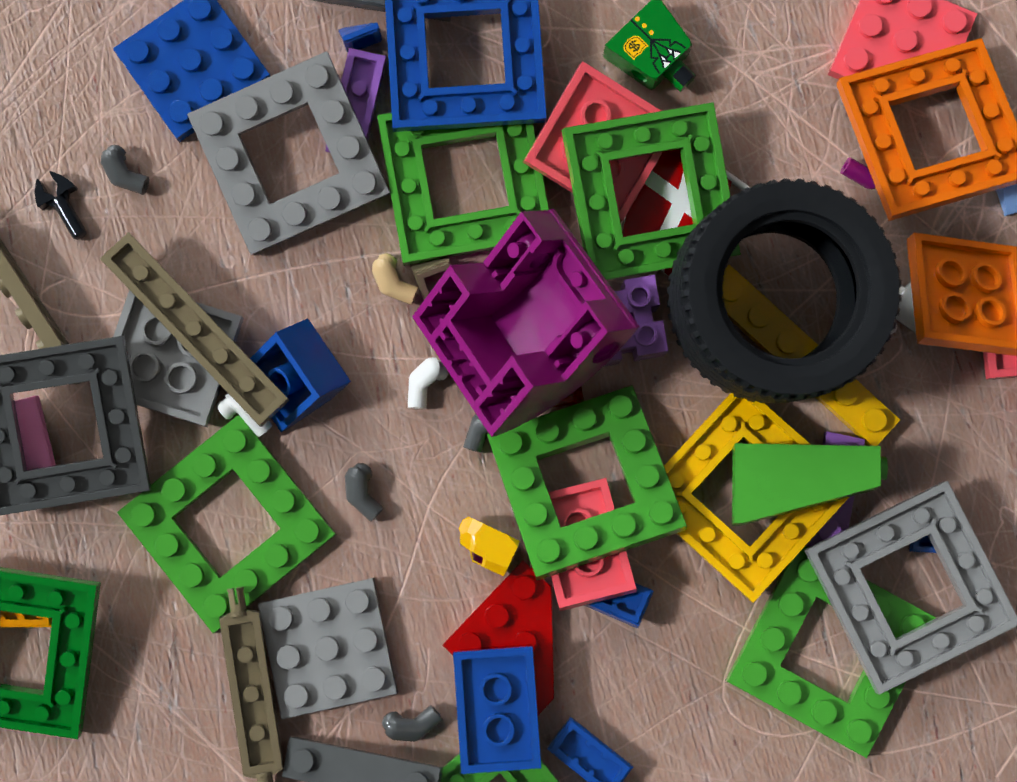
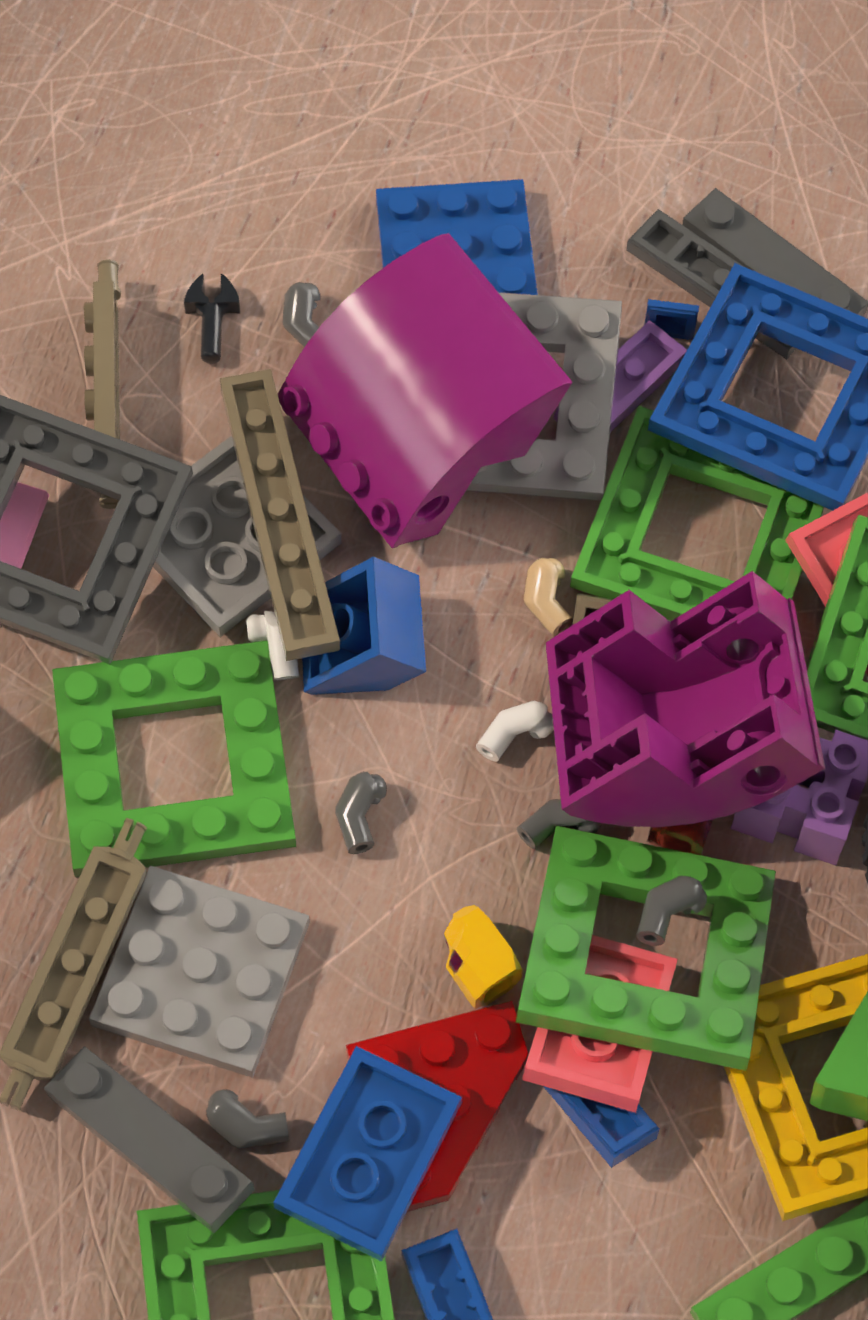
camera: 30 degrees right, 20 degrees down
(235, 194) = (421, 388): none -> magenta slope
(584, 453) = (667, 899): none -> dark grey arm

